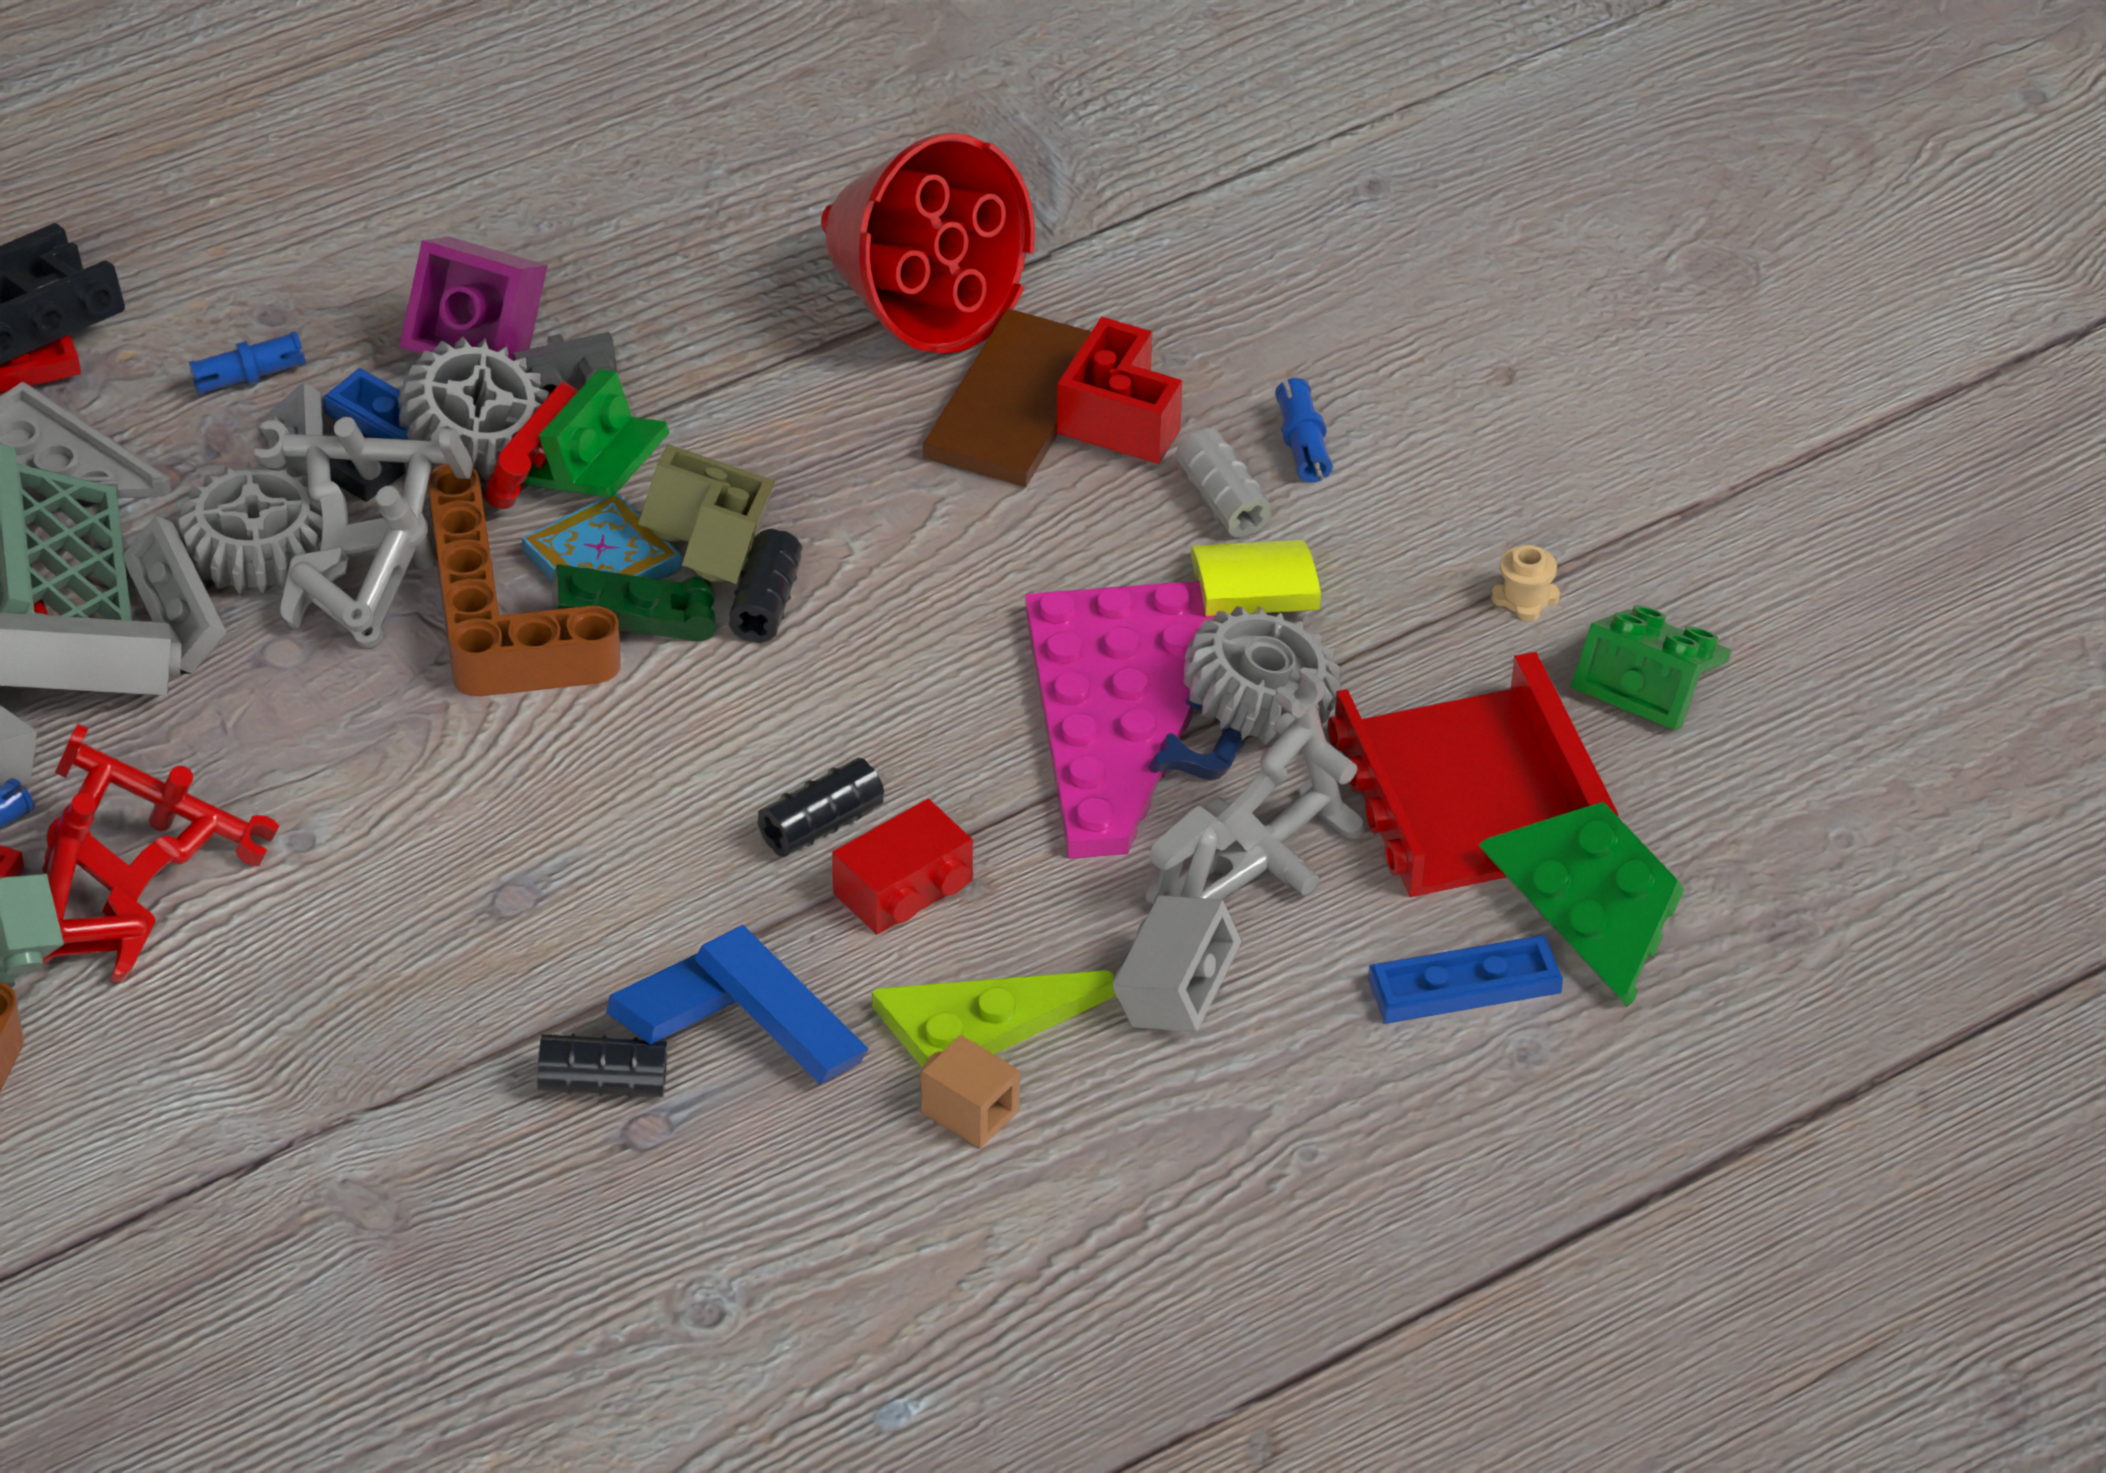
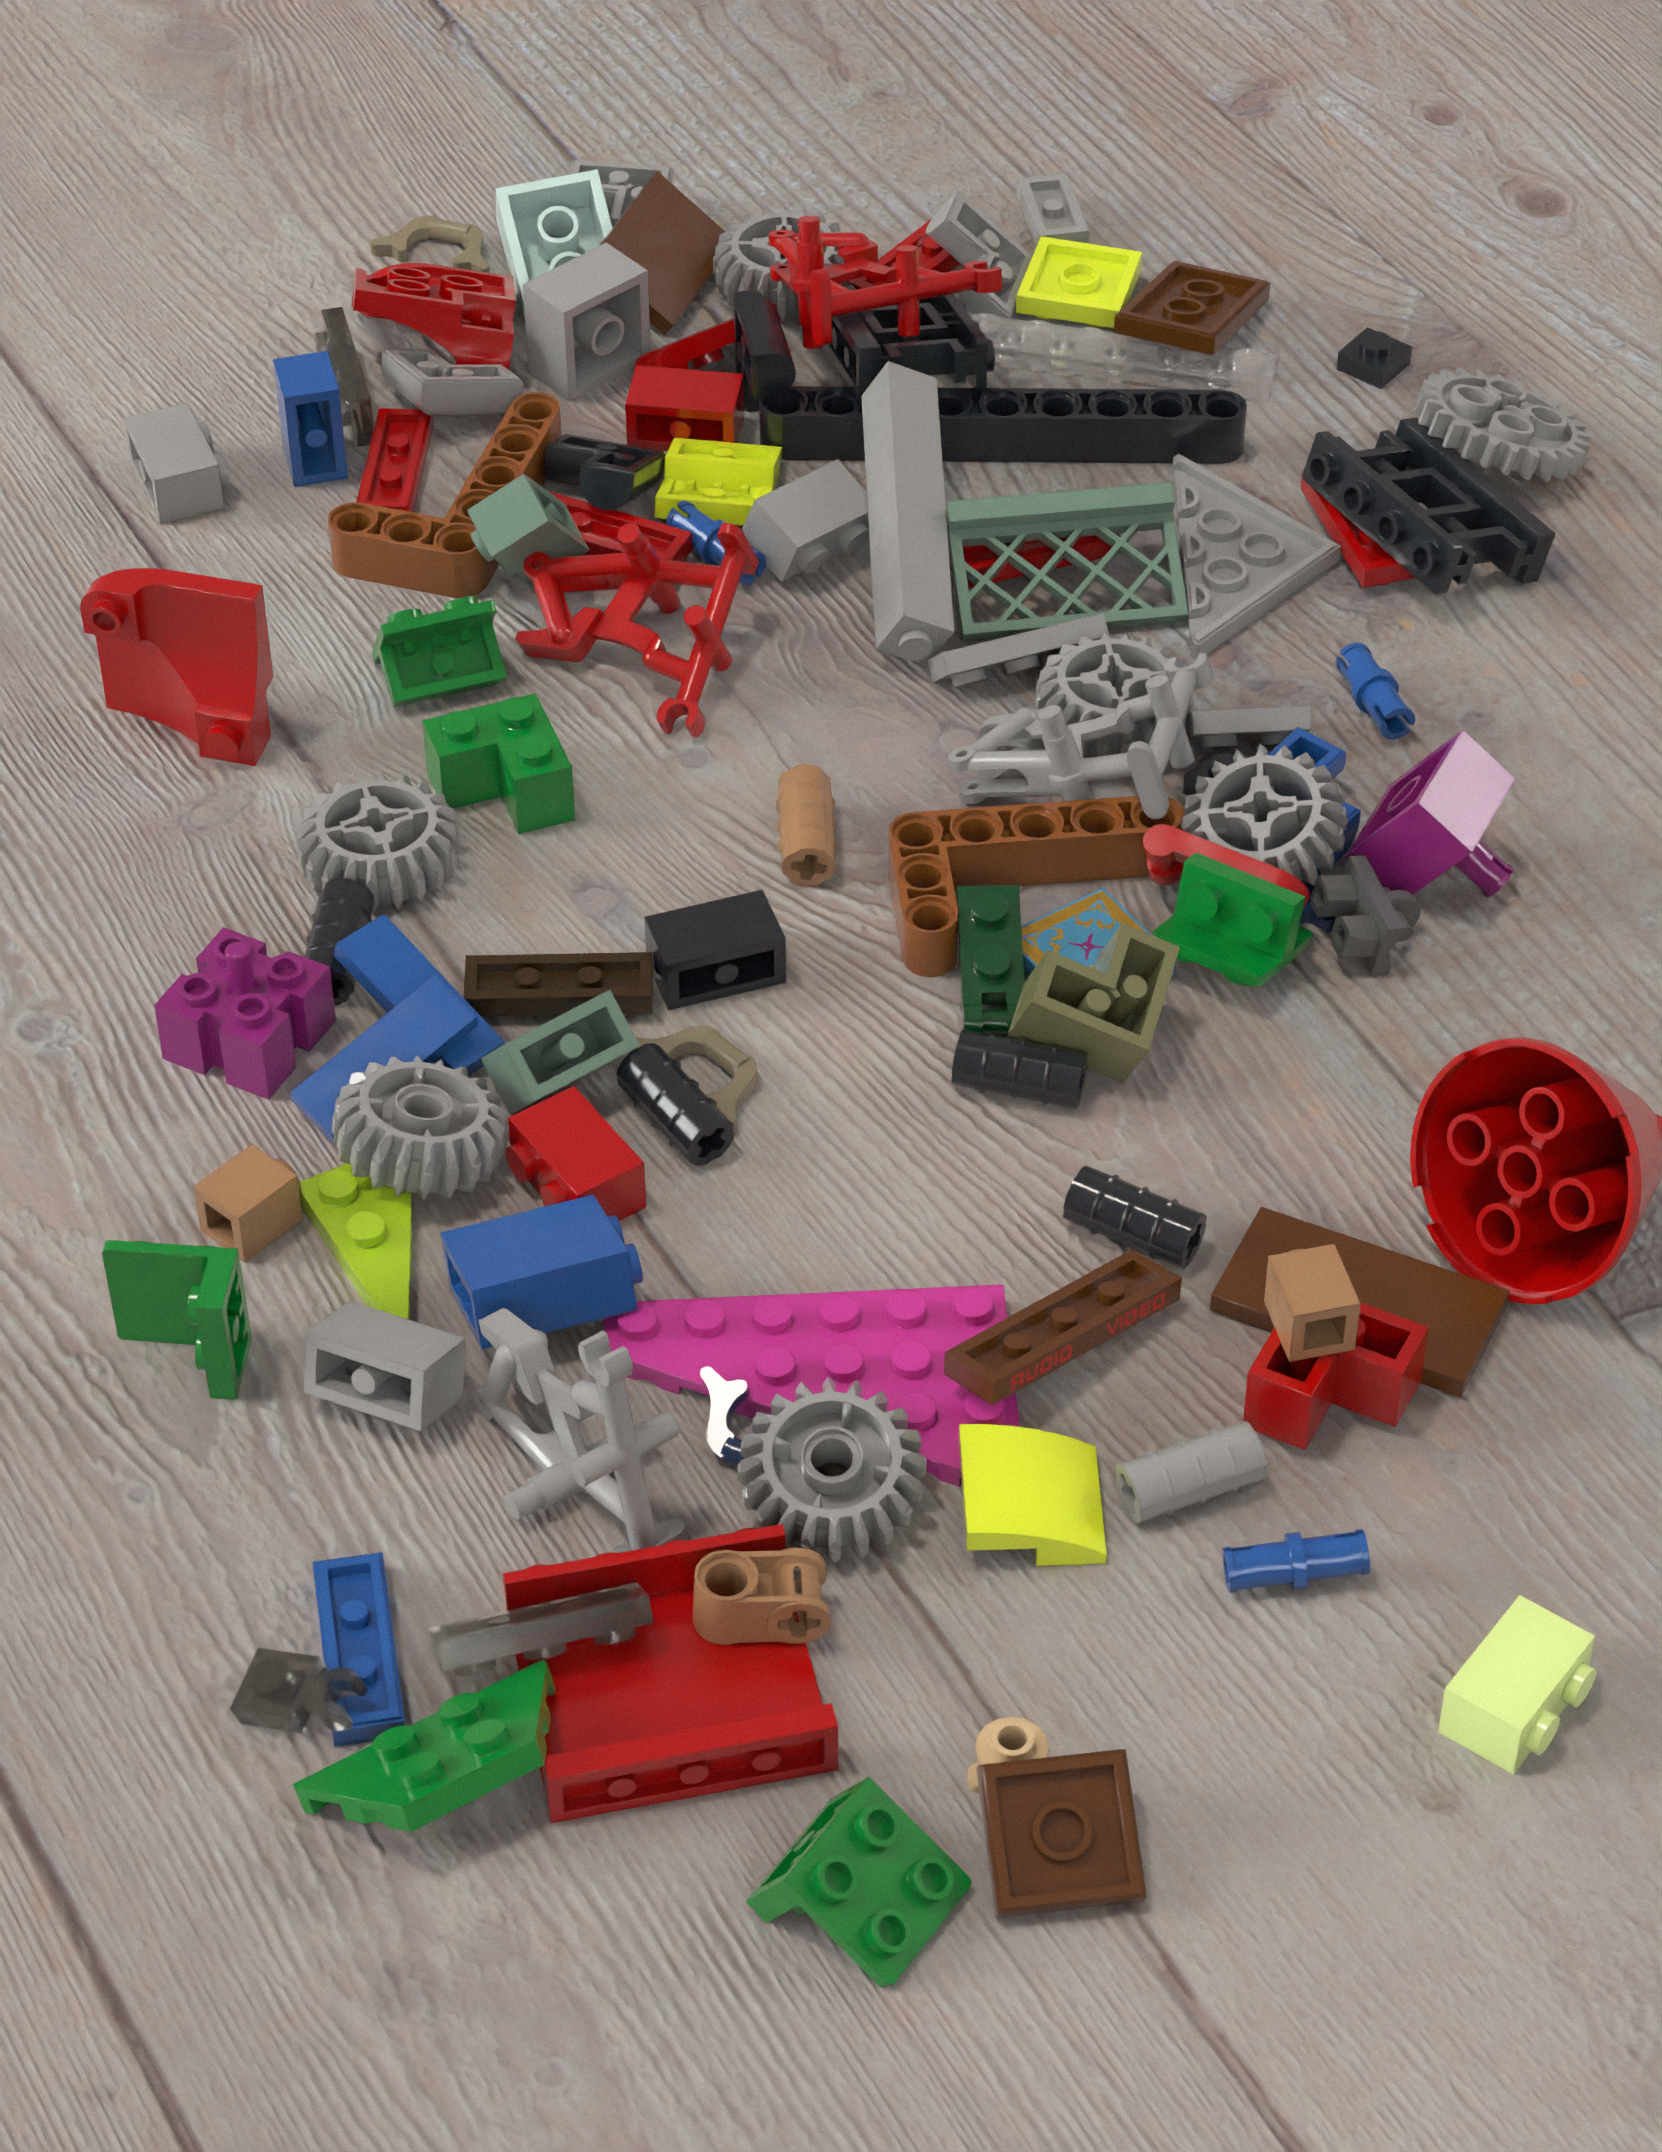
camera: 95 degrees right, 0 degrees up
(151, 1021) = (439, 651): none -> green bracket
(223, 1187) = (185, 655): none -> red slope
(334, 948) = (502, 753): none -> green brick
(434, 734) = (806, 825): none -> medium nougat axle
(455, 1047) = (382, 836): none -> light grey gear
(612, 789) = (716, 949): none -> black brick
(657, 898) = (557, 982): none -> dark brown plate
(715, 1117) = (245, 1013): none -> magenta brick
(723, 799) = (709, 1042): none -> dark tan helmet
(775, 875) = (560, 1052): none -> sand green brick
(878, 965) = (419, 1127): none -> light grey gear
(943, 514) = (1134, 1216): none -> black axle
(1057, 868) = (543, 1266): none -> blue brick
(1086, 545) = (1062, 1326): none -> reddish brown plate
(1106, 359) = (1311, 1302): none -> medium nougat brick
(1150, 1079) = (183, 1299): none -> green bracket
(1397, 718) = (755, 1594): none -> medium nougat piece
(1410, 316) = (1518, 1685): none -> yellowish green brick
(1453, 845) = (540, 1629): none -> clear smoke plate
(1530, 1003) = (289, 1688): none -> clear smoke plate
(1595, 546) = (1061, 1833): none -> reddish brown tile

